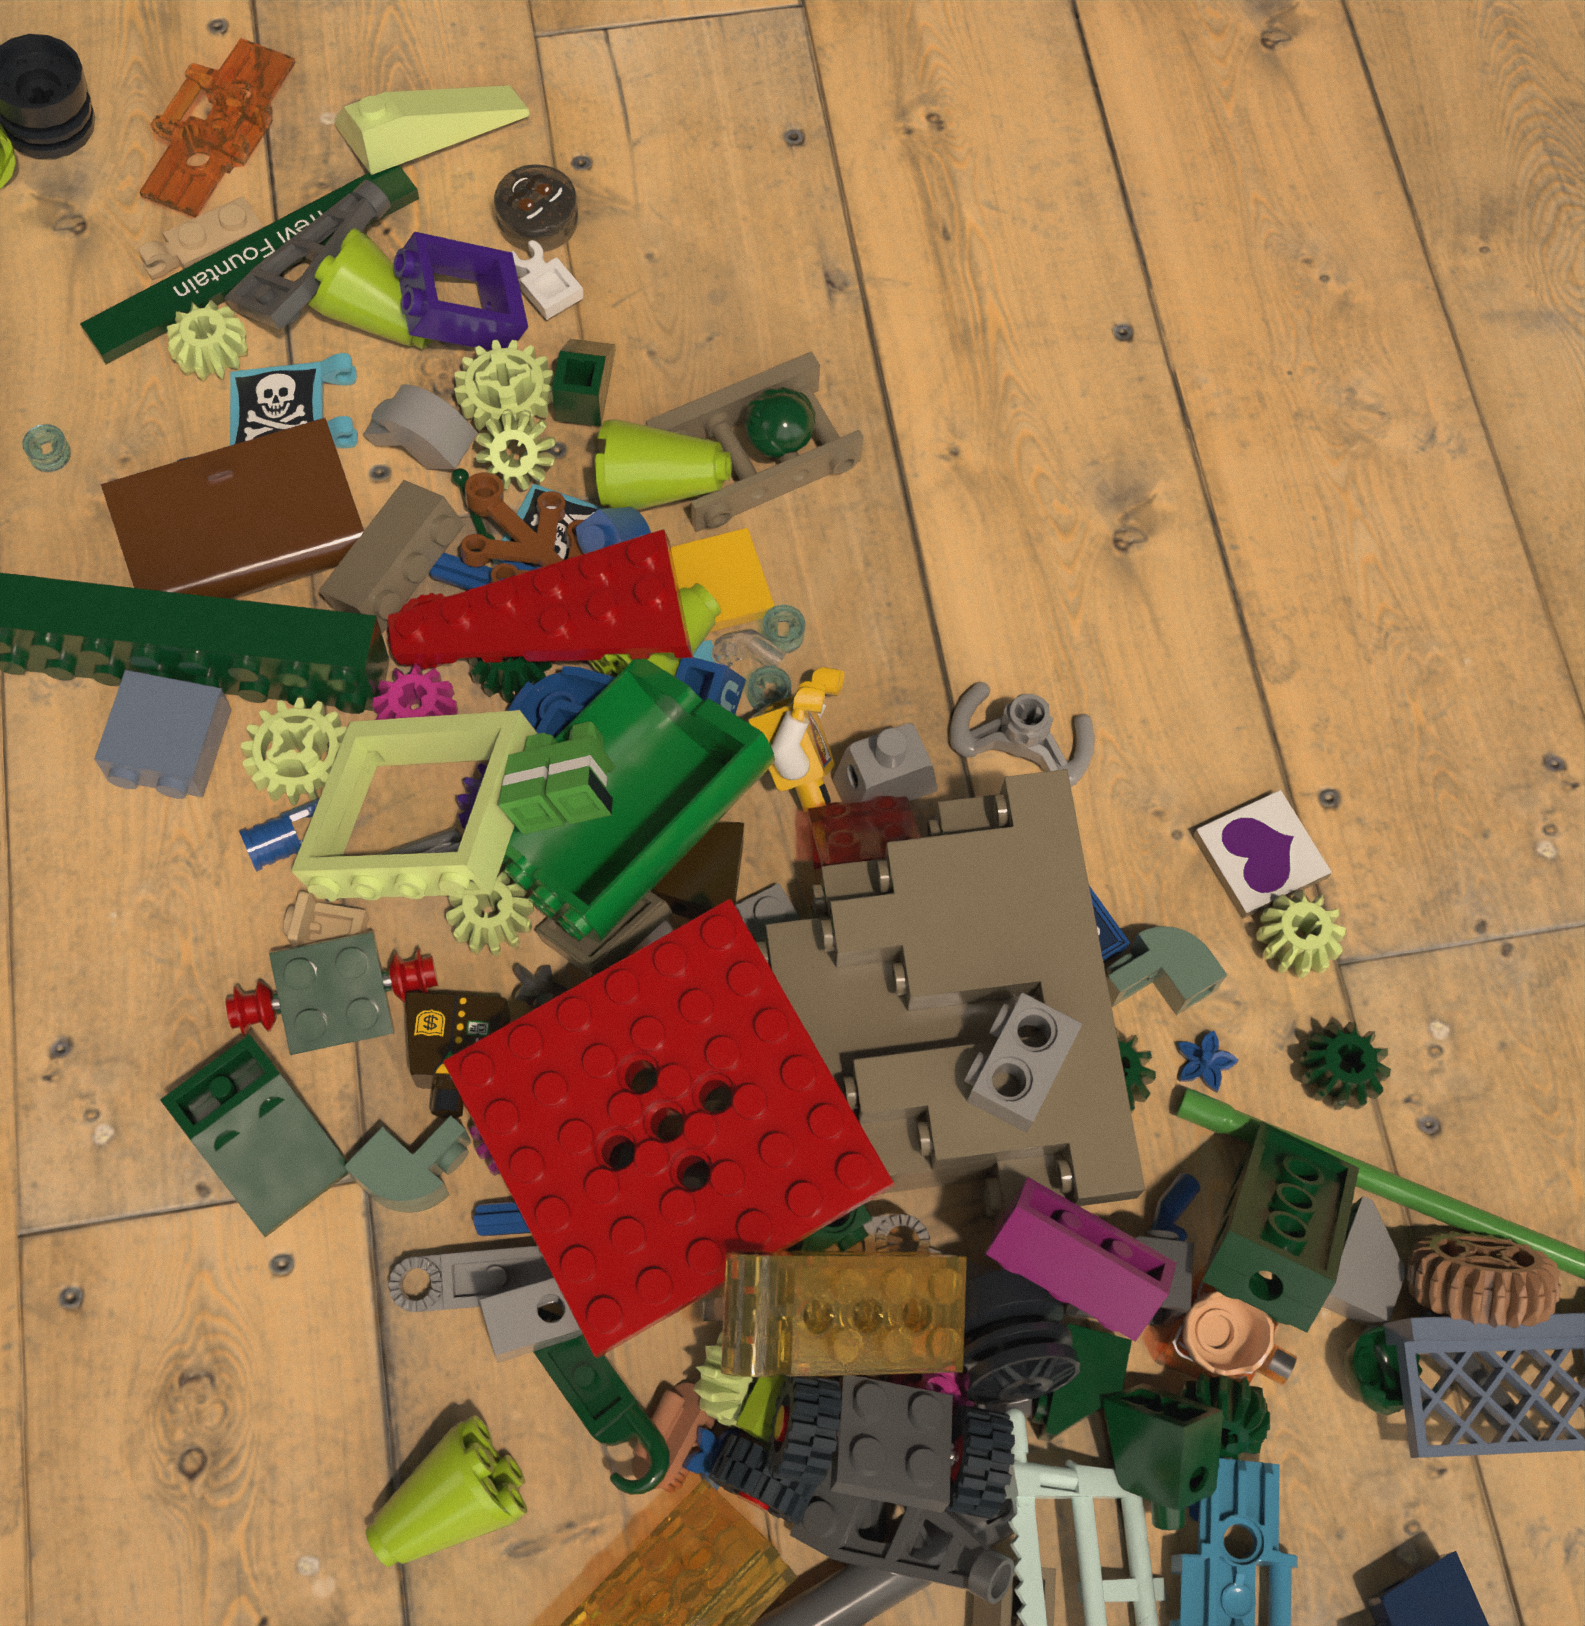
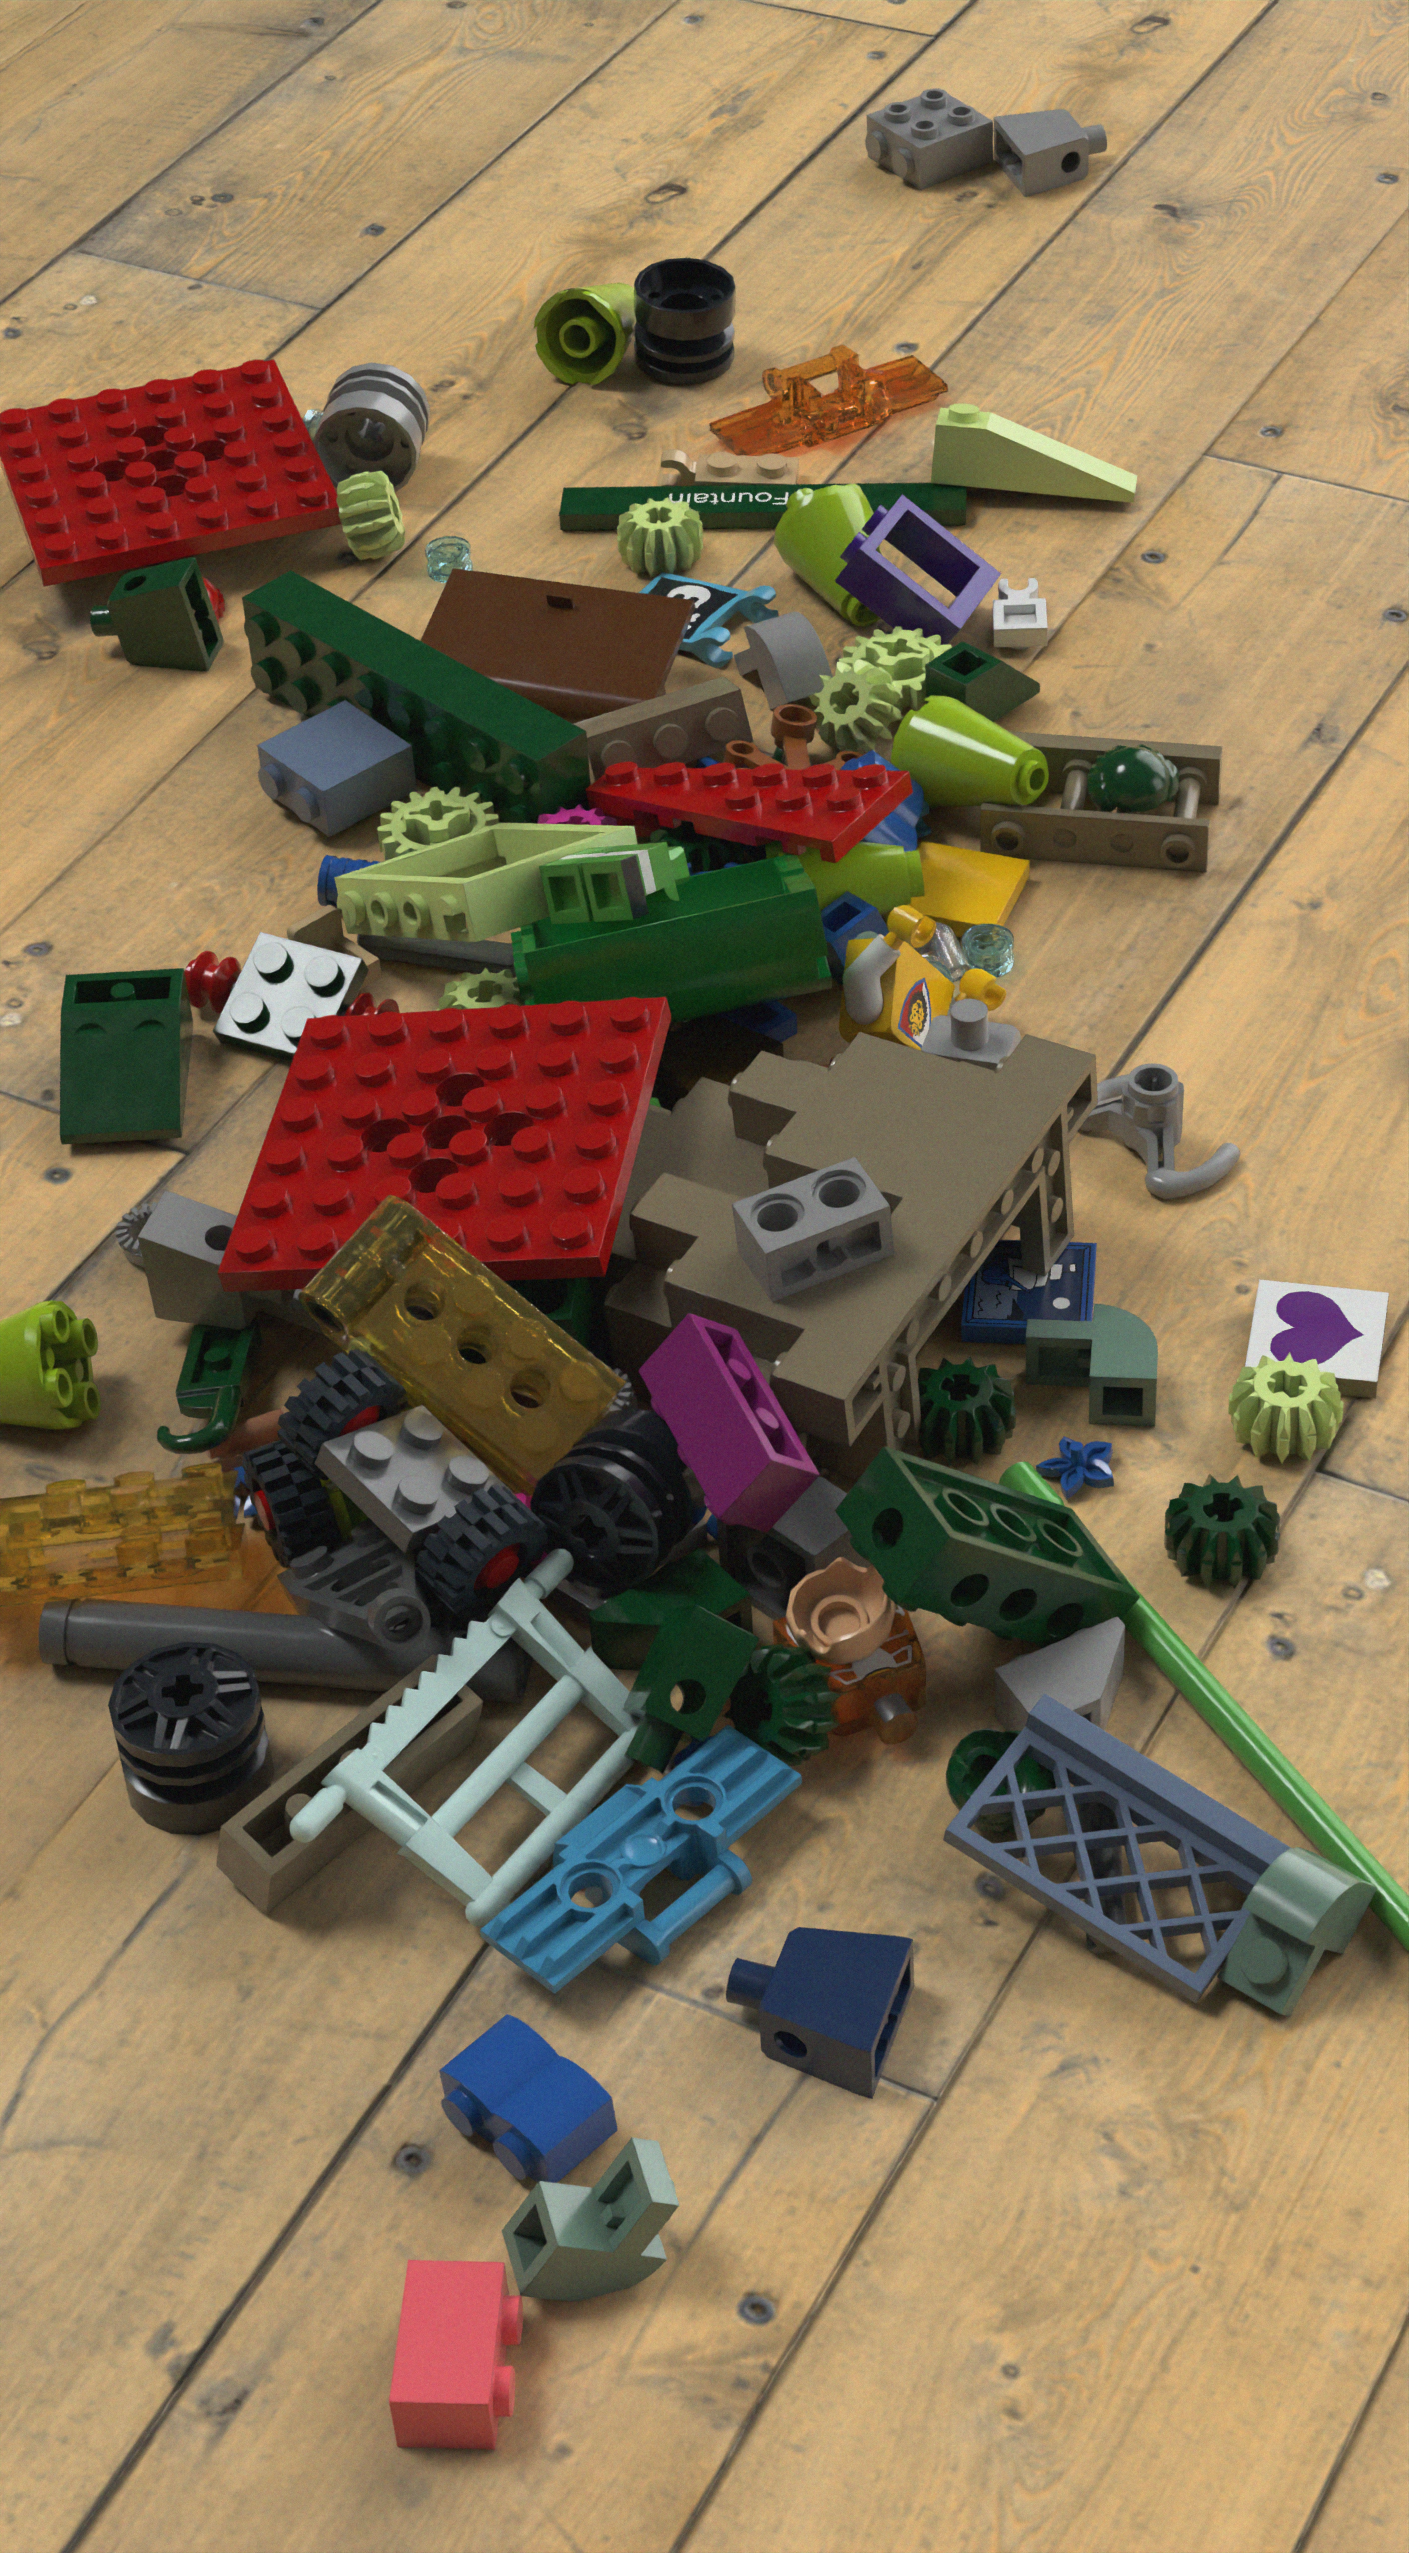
camera: 45 degrees right, 25 degrees down
(278, 300) = (746, 526): dark grey plate -> none
(405, 1179) = (212, 1151): sand green brick -> none
(536, 206) = (1068, 561): clear smoke head -> none
(1483, 1279) = (1174, 1730): medium nougat gear -> none

